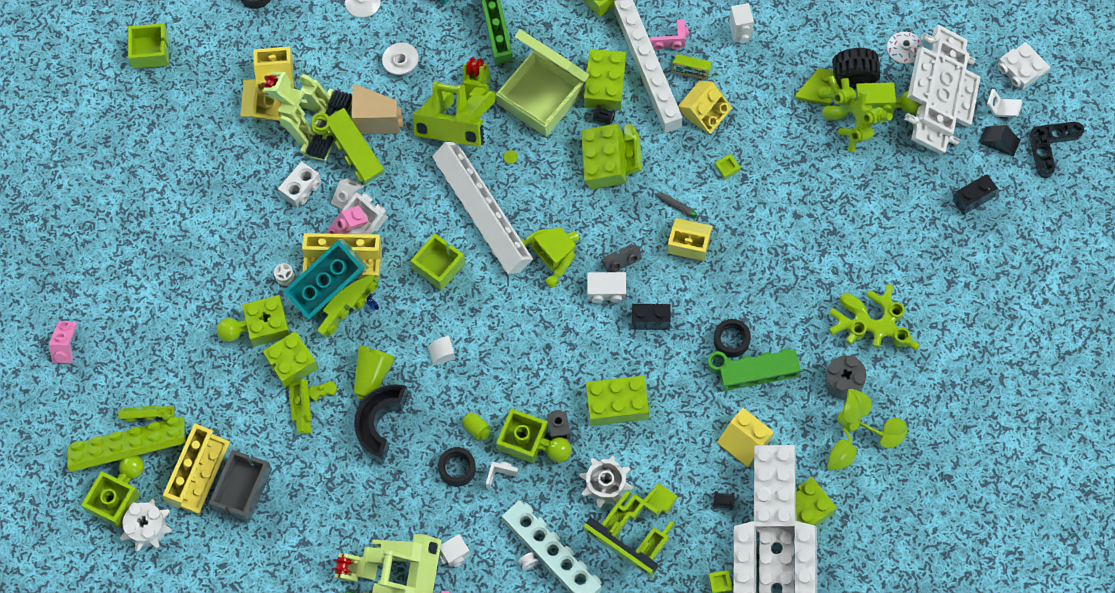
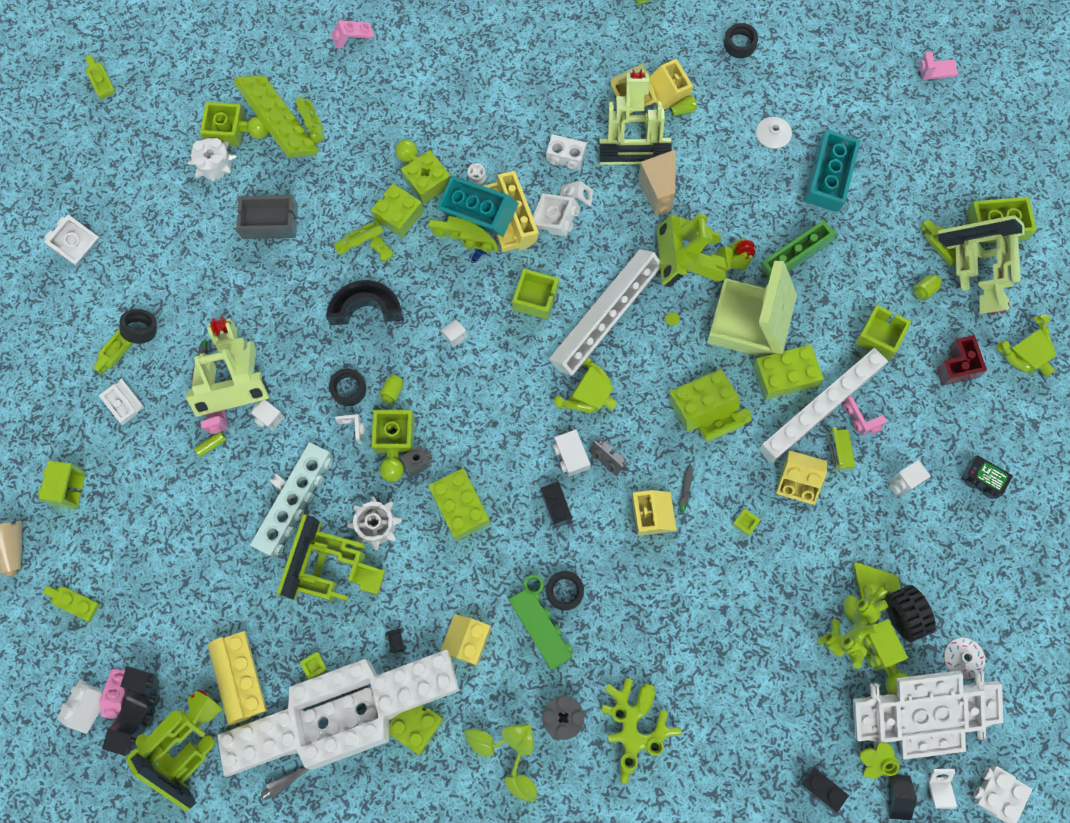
camera: 70 degrees right, 5 degrees up
(195, 469) = (271, 175): light yellow brick -> none
(300, 62) = (684, 106): none -> lime cone
(348, 220) = (543, 203): bright pink bracket -> none
(351, 143) = (621, 176): lime hinge -> none
(370, 370) = (411, 278): lime cone -> none
(400, 52) = (728, 178): white dish -> none
(604, 115) = (753, 391): black bush -> none
(966, 143) = (879, 761): none -> lime plate

